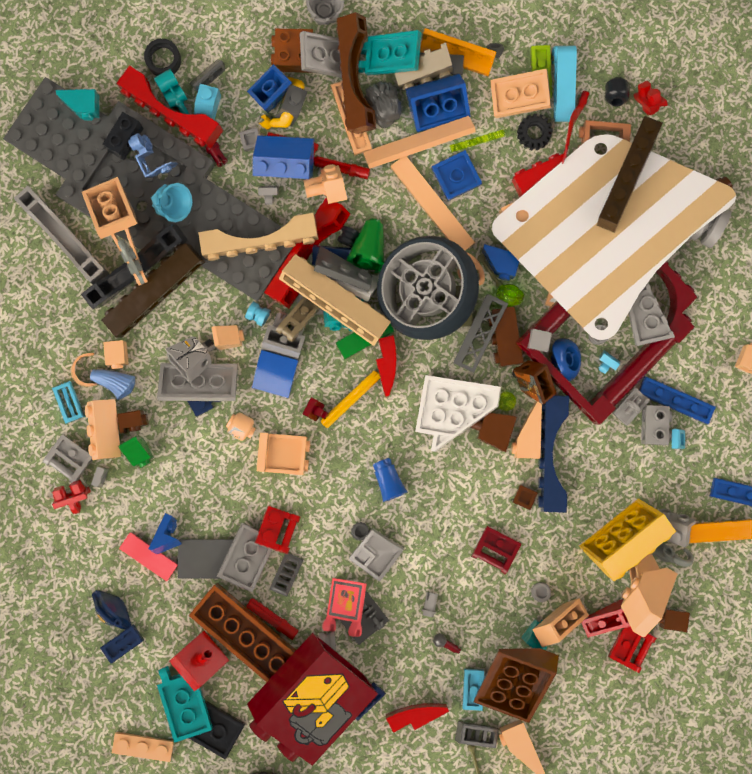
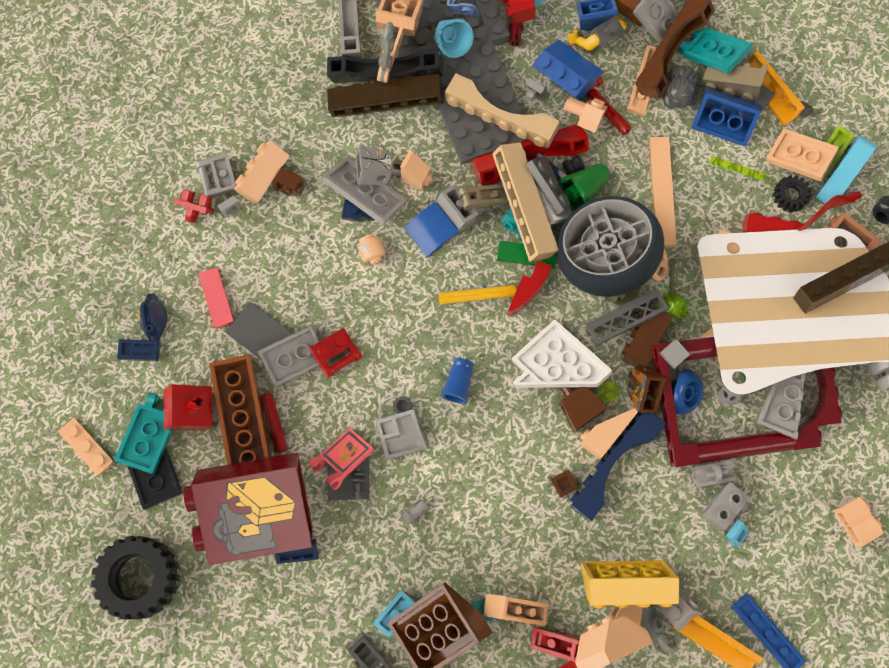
camera: 40 degrees right, 10 degrees down
(73, 371) = (280, 108): light nougat helmet -> none
(76, 402) = (247, 149): medium azure tile -> none
(116, 354) = (317, 124): light nougat brick -> none
(118, 383) = (301, 147): medium blue piece -> none
(137, 452) = (273, 206): green slope -> none
(162, 540) = (238, 290): blue slope -> none
(249, 138) = (550, 38): light grey tile -> none
(257, 314) = (453, 173): medium azure wheel -> none
(278, 589) = (318, 401): dark grey slope -> none
(283, 454) = (387, 296): light nougat panel -> none
(315, 410) = (441, 280): dark red tile -> none
(329, 638) = (308, 475): light grey wheel -> none
(416, 715) = (328, 596): red slope -> none
(419, 142) = (688, 135): light nougat tile -> none
(440, 641) = (399, 550): piece -> none
(456, 175) = (700, 182): blue plate -> none
(498, 543) = (512, 506): dark red plate -> none
(501, 262) = (687, 275): blue slope -> none
(541, 592) = (517, 575): light grey tile -> none
(607, 362) = (722, 422): medium azure tile -> none
(677, 400) = (760, 501): blue tile -> none

